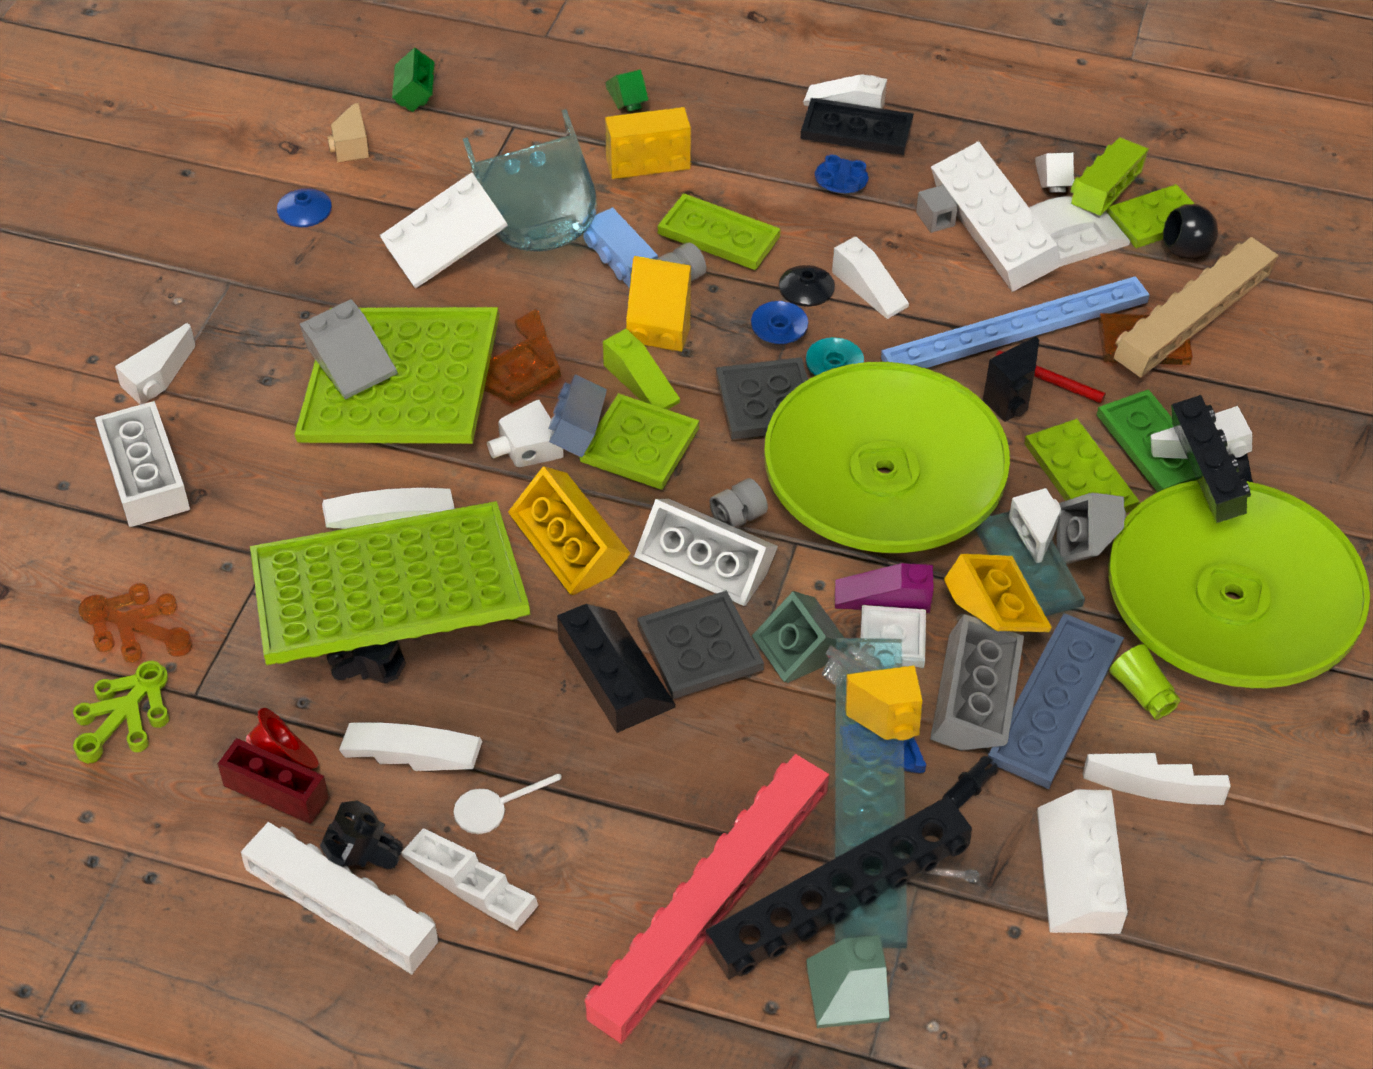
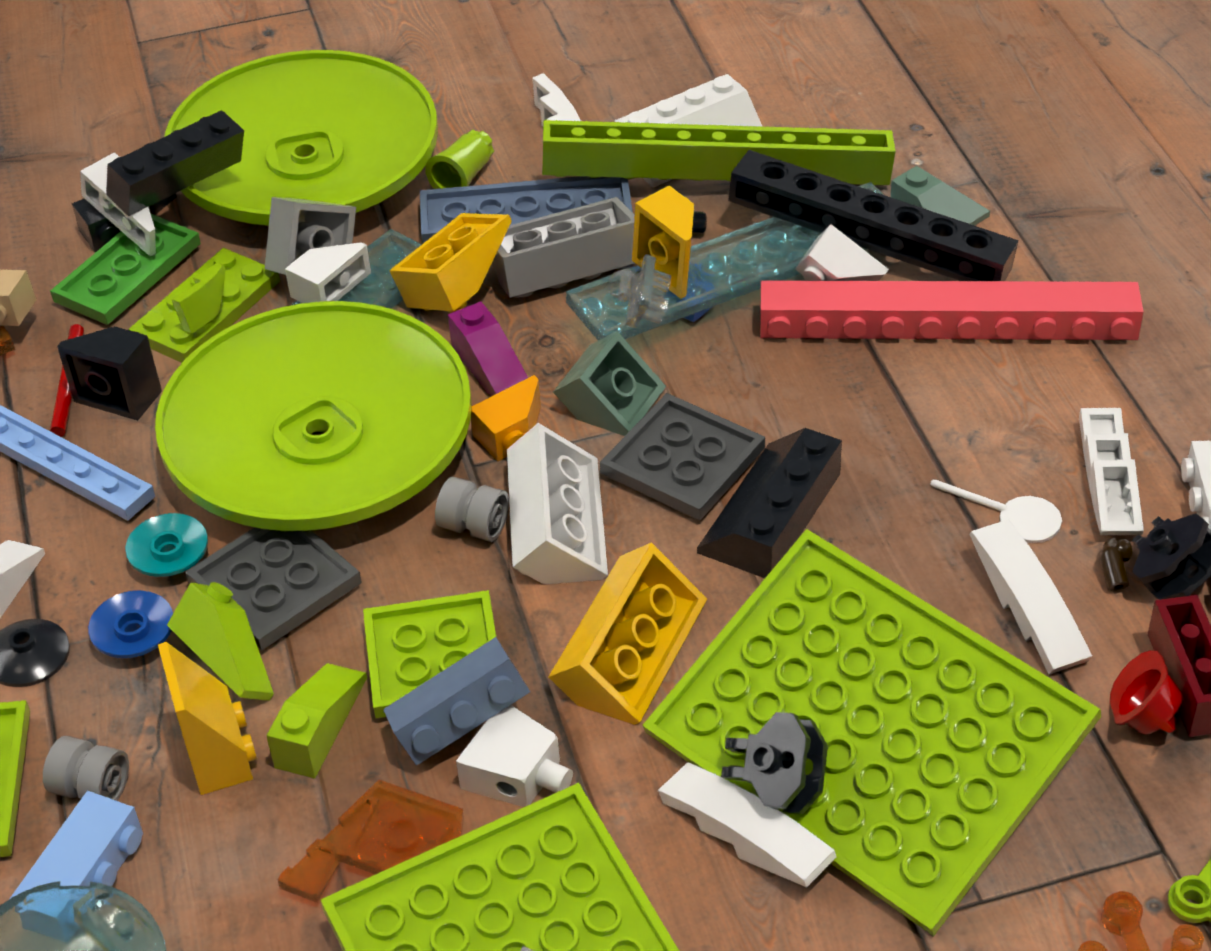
camera: 120 degrees left, 5 degrees down
(395, 515) = (778, 762): none -> hinge
(397, 816) = (1112, 564): none -> dark brown arm
(722, 350) = (222, 638): none -> lime slope
(810, 840) = (839, 259): none -> white slope
(811, 567) = (506, 416): none -> light orange slope
(897, 624) = (544, 339): white tile -> none
(1007, 841) = (710, 150): none -> lime brick
(1056, 446) = (201, 301): none -> lime slope

